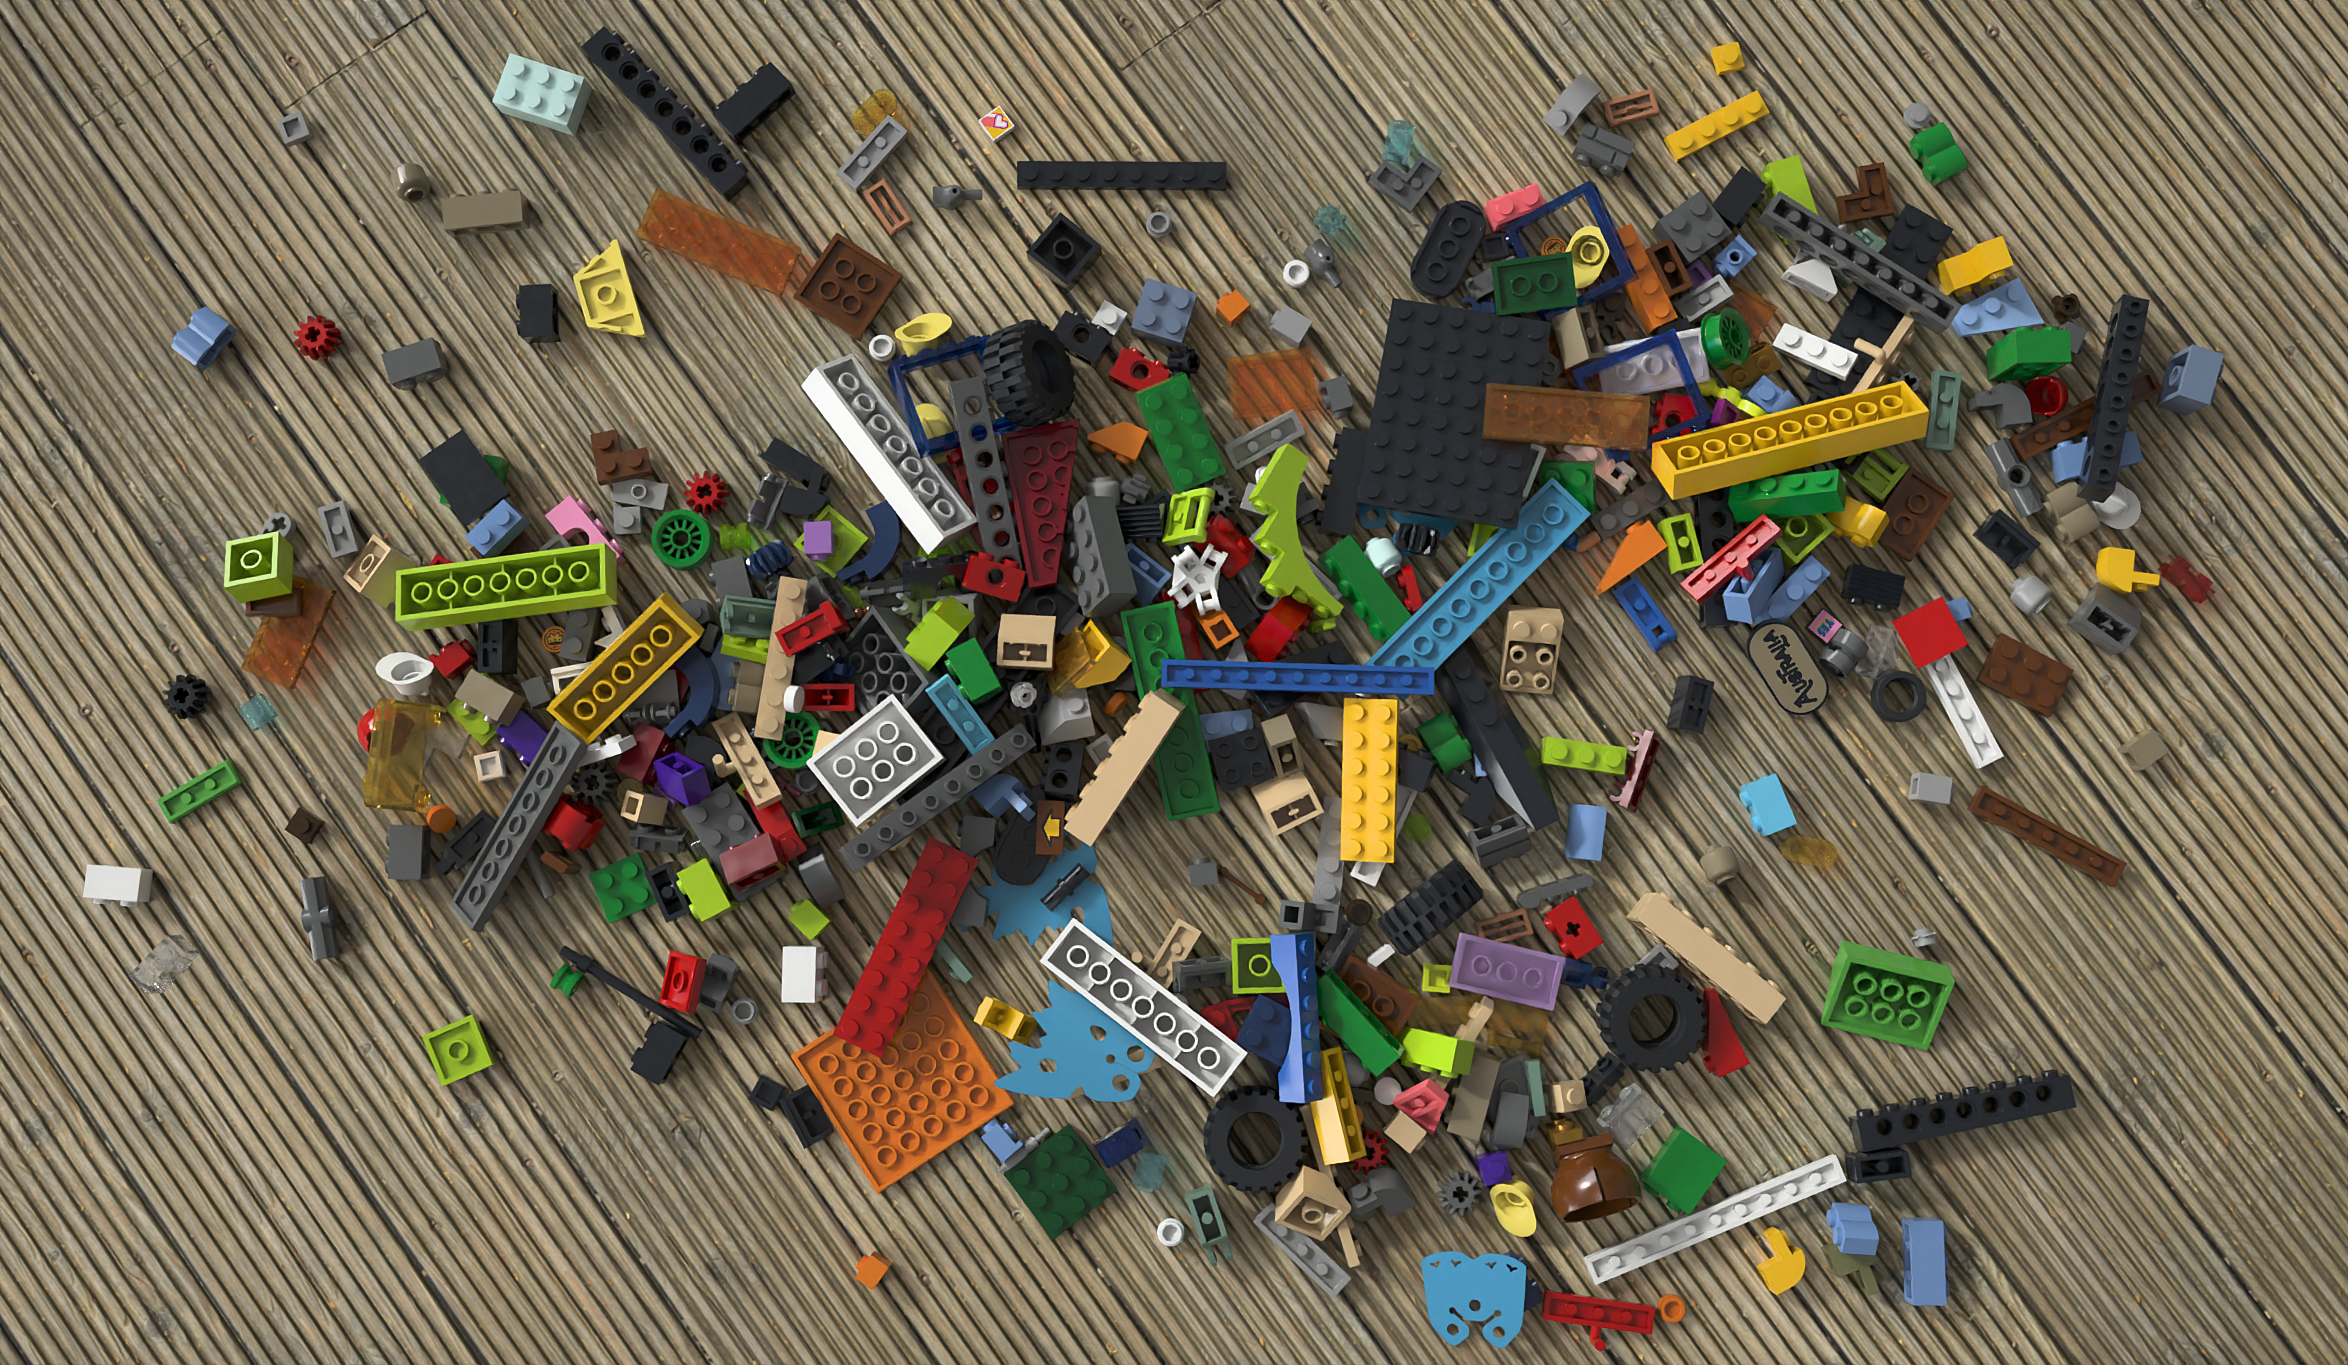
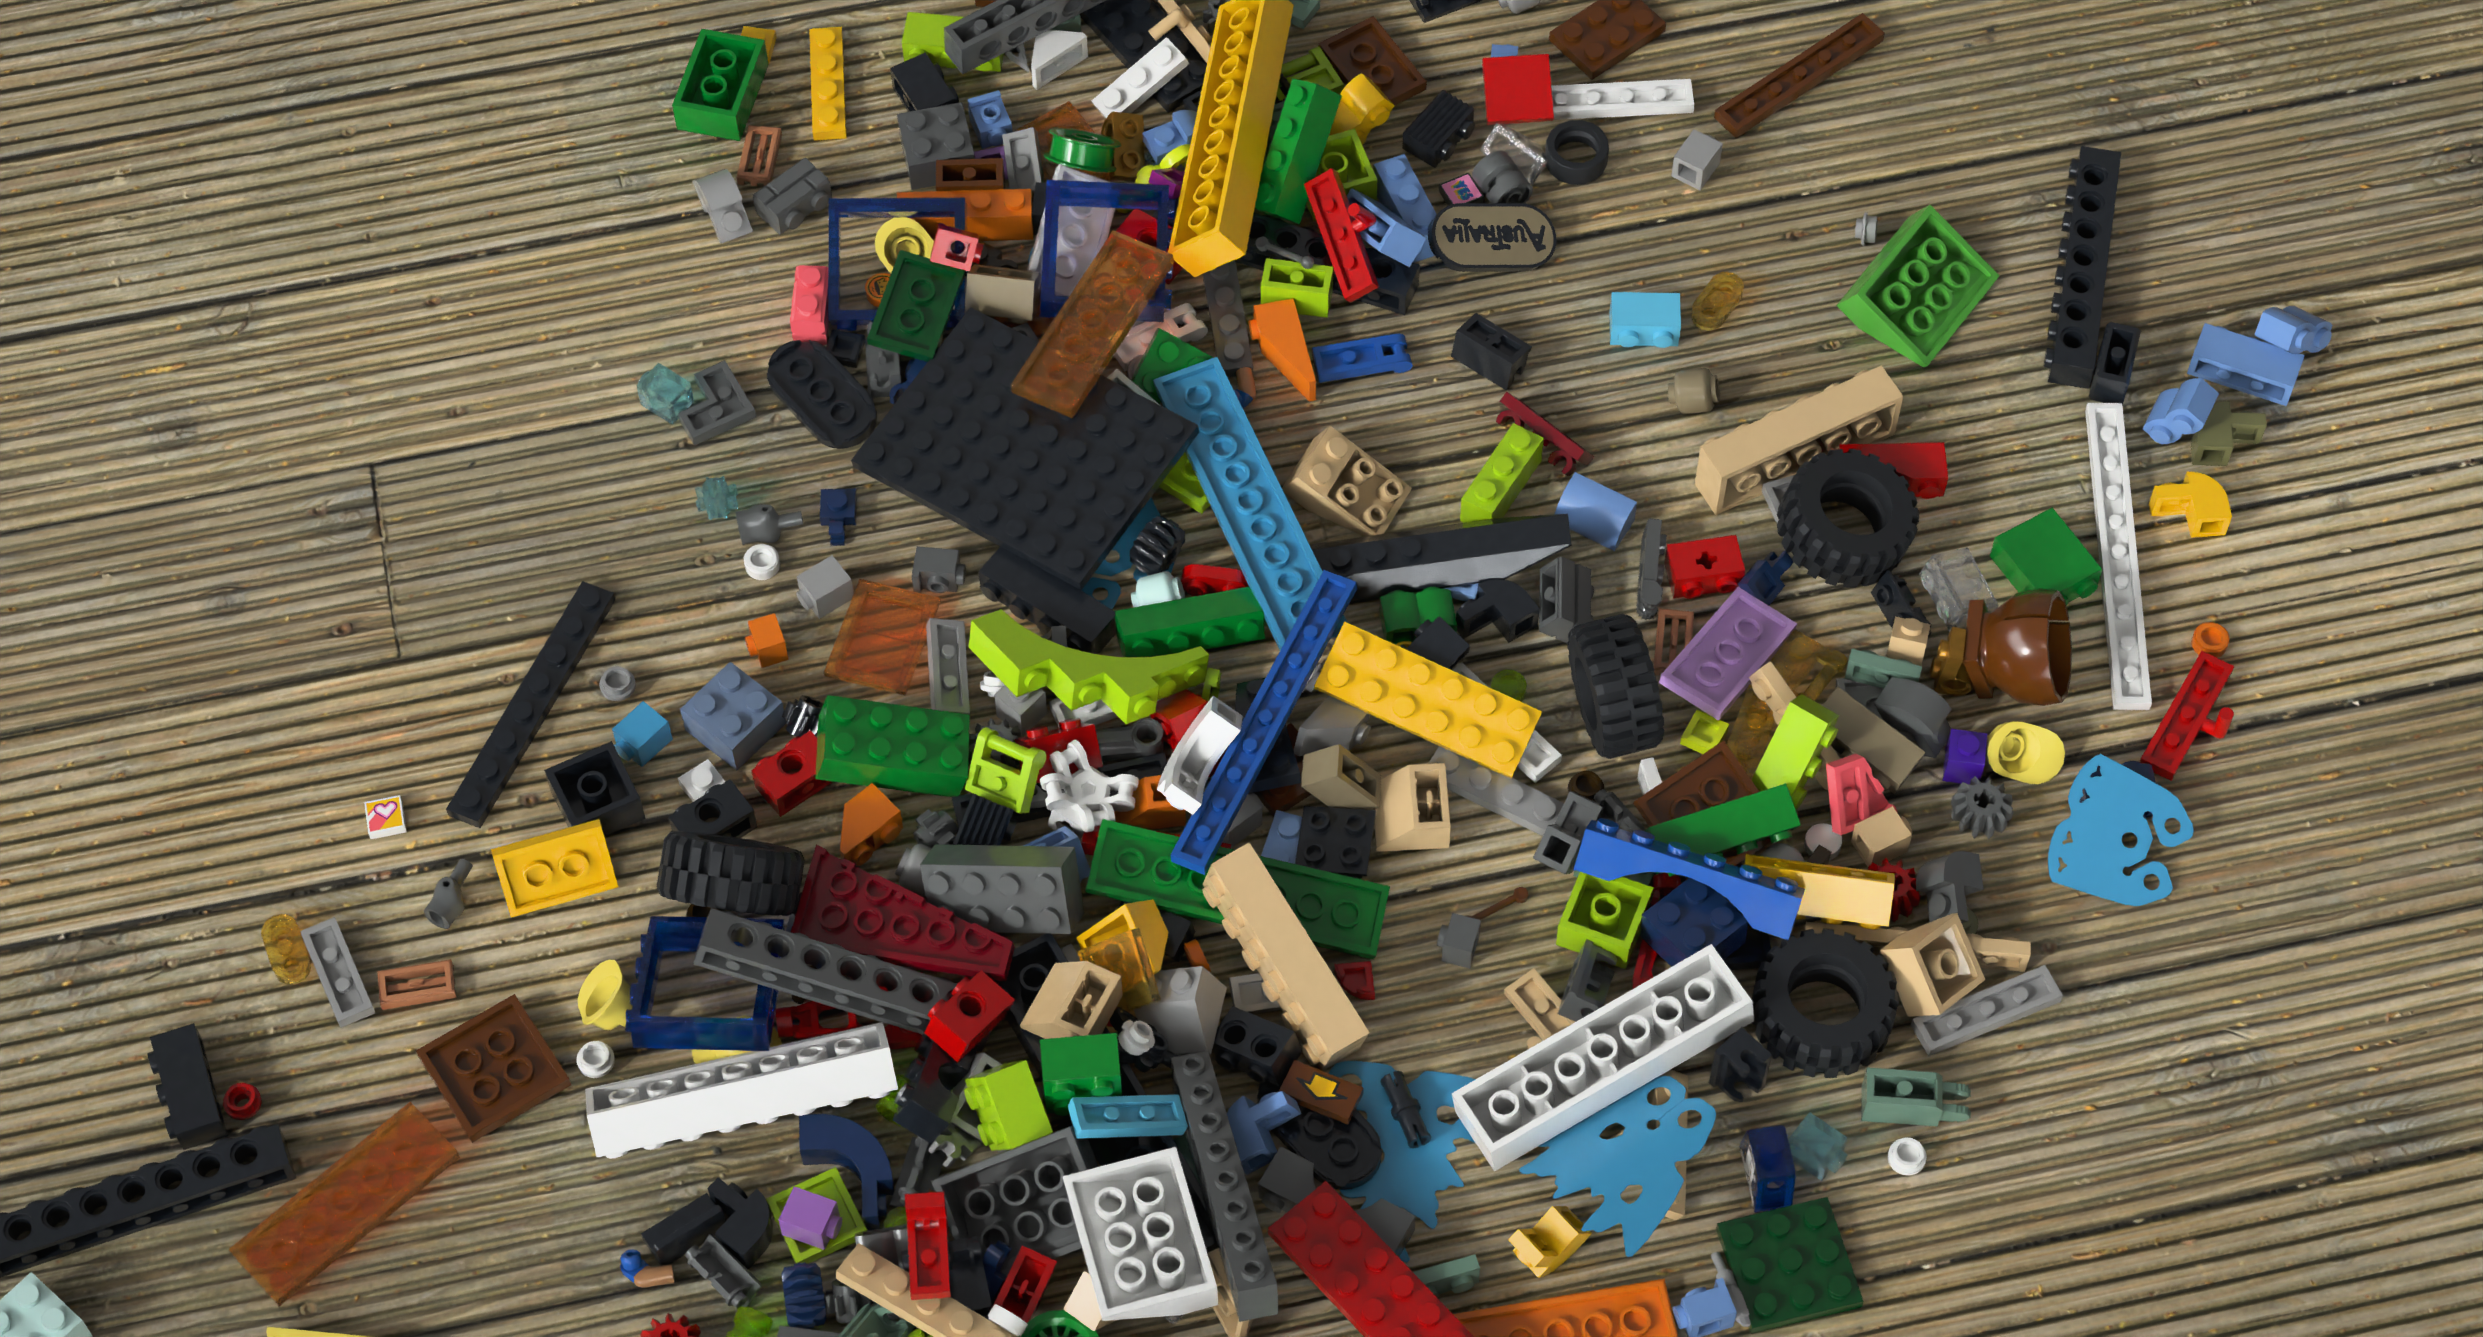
camera: 65 degrees left, 25 degrees down
(750, 451) = (643, 1274): none -> arm
(757, 135) = (237, 1093): none -> red plate
(998, 253) = (554, 868): none -> yellow plate
(1124, 260) = (641, 734): none -> dark azure brick
(1149, 815) = (1356, 978): none -> red tile
(1181, 1094) = (1740, 1060): none -> black hinge
(1246, 641) = (1197, 754): none -> white arch
(1358, 305) = (836, 511): none -> dark blue plate
(1588, 290) = (944, 254): none -> brick
(1674, 51) = (720, 84): none -> green brick
(1703, 505) = (1263, 244): none -> dark grey hinge
(1966, 1290) = (2294, 330): none -> medium blue brick

